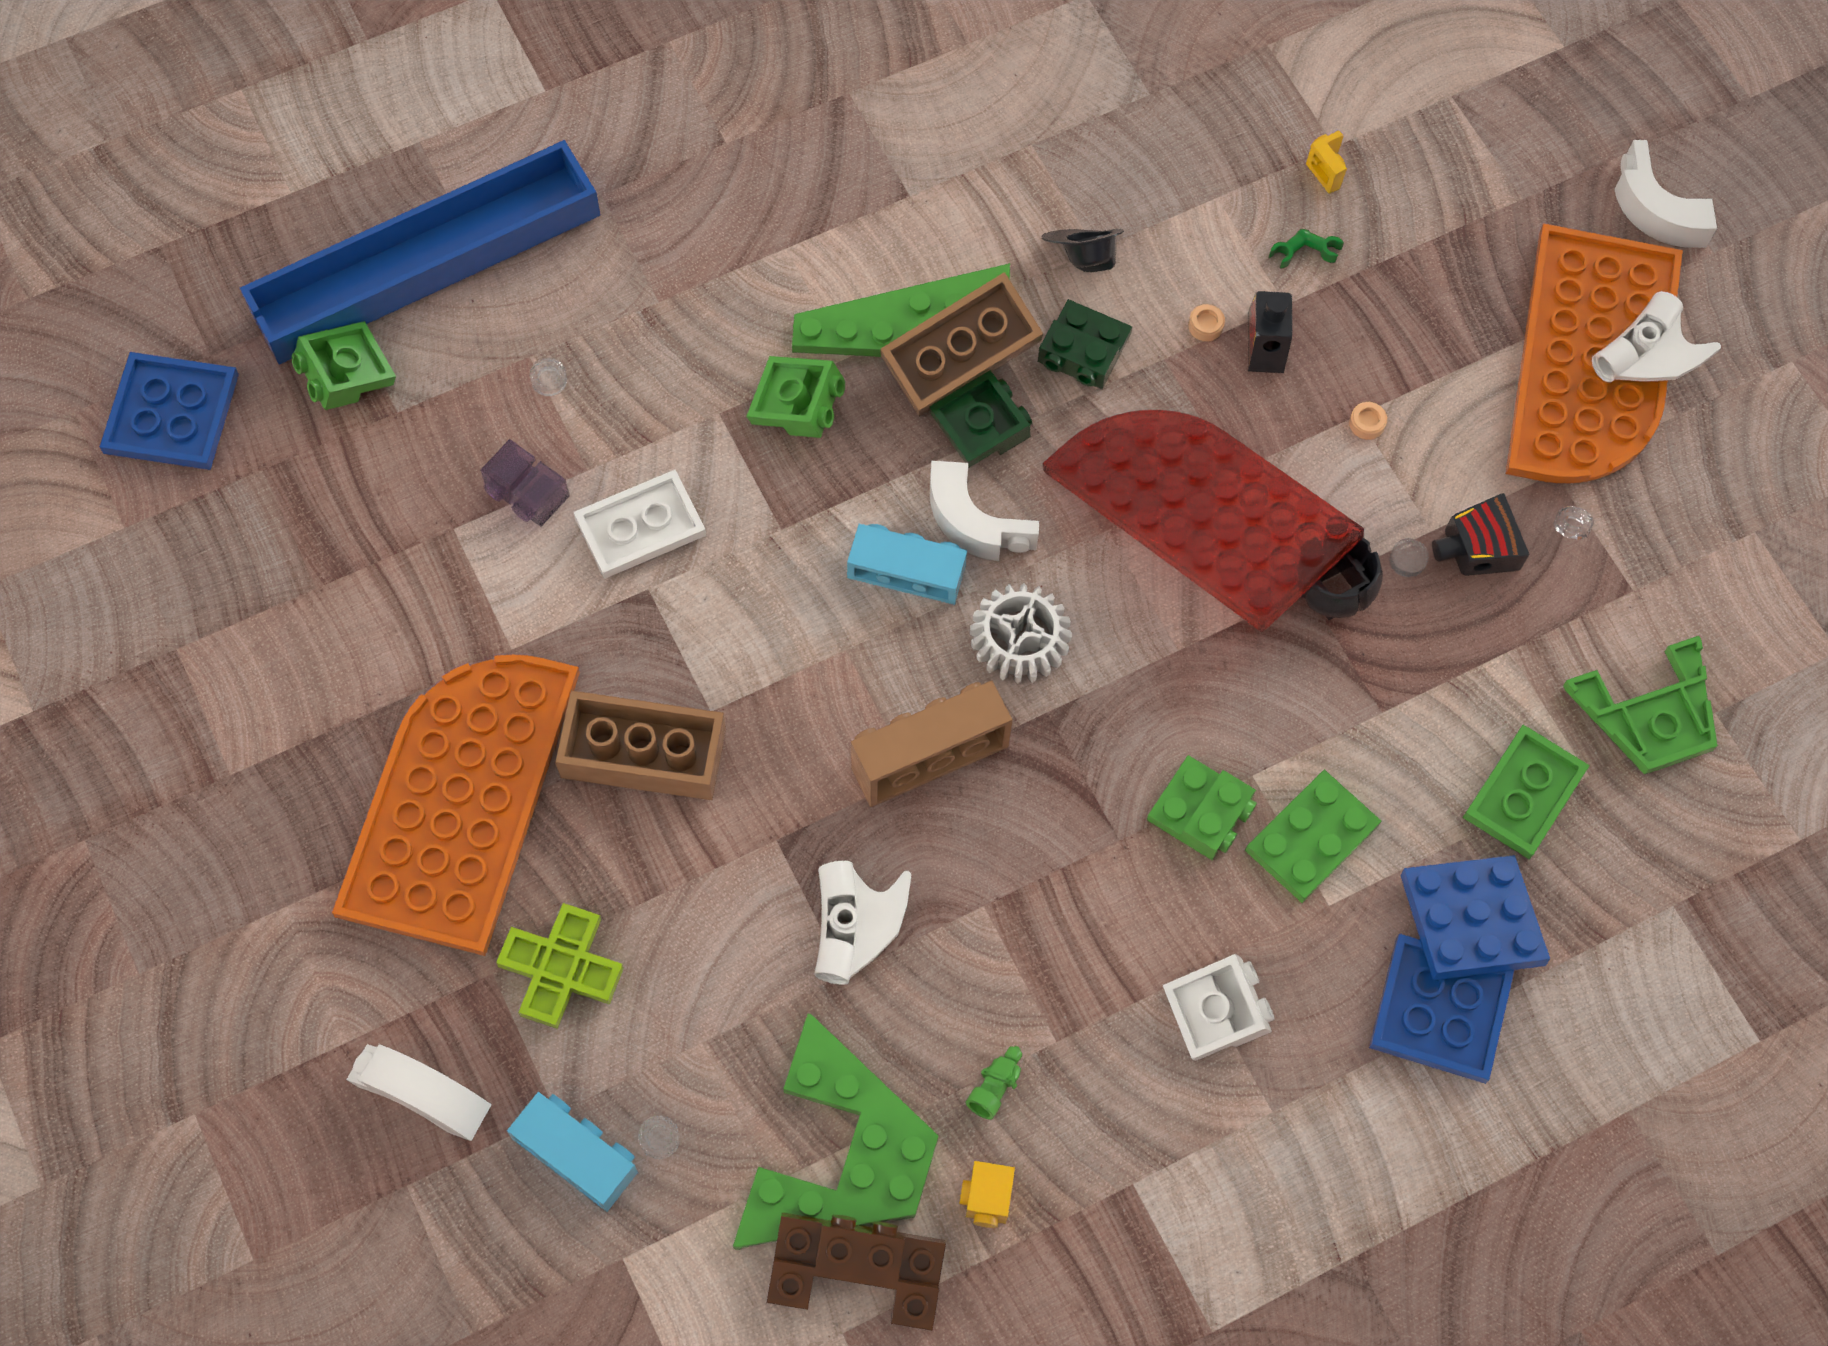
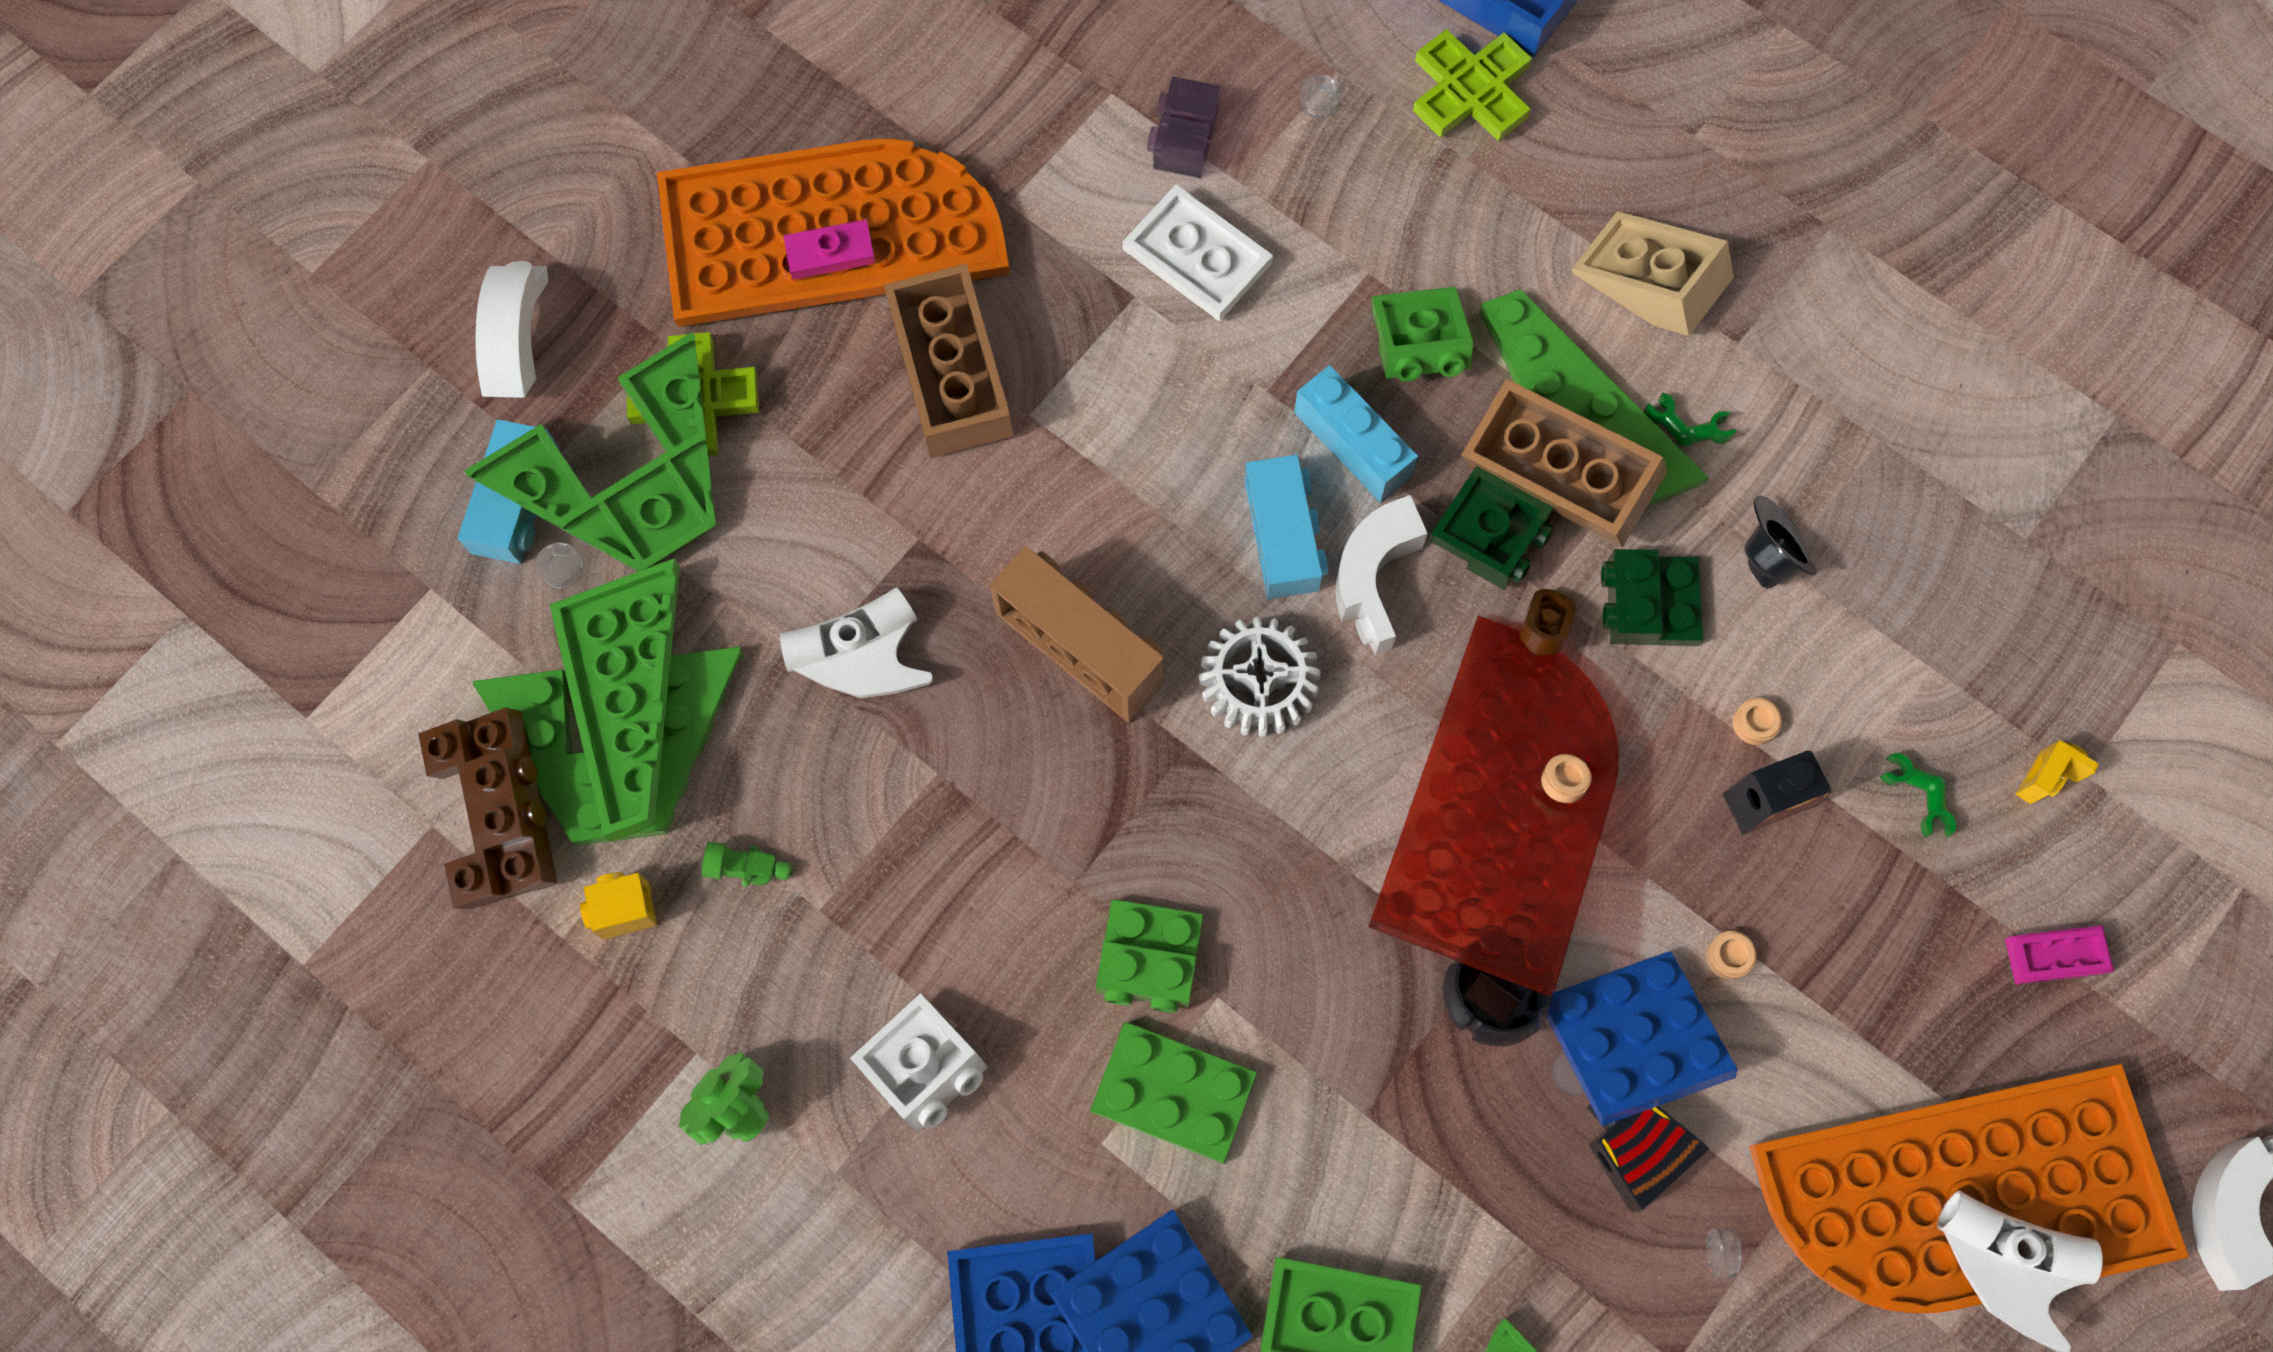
camera: 70 degrees right, 5 degrees up
(489, 797) = (829, 249): none -> dark pink plate
(602, 266) = (1472, 84): none -> lime plate
(652, 1036) = (648, 510): none -> bright green wing
(786, 1115) = (617, 674): none -> bright green wing
(828, 217) = (1657, 270): none -> tan slope
(857, 478) = (1355, 433): none -> medium azure brick
(965, 263) = (1685, 434): none -> green arm
(1074, 417) = (1547, 622): none -> reddish brown plate
(1189, 1165) = (726, 1102): none -> bright green plant
(1207, 454) = (1566, 778): none -> light nougat tile
(1409, 501) = (1638, 1038): none -> blue plate
(1454, 223) = (2059, 955): none -> dark pink plate

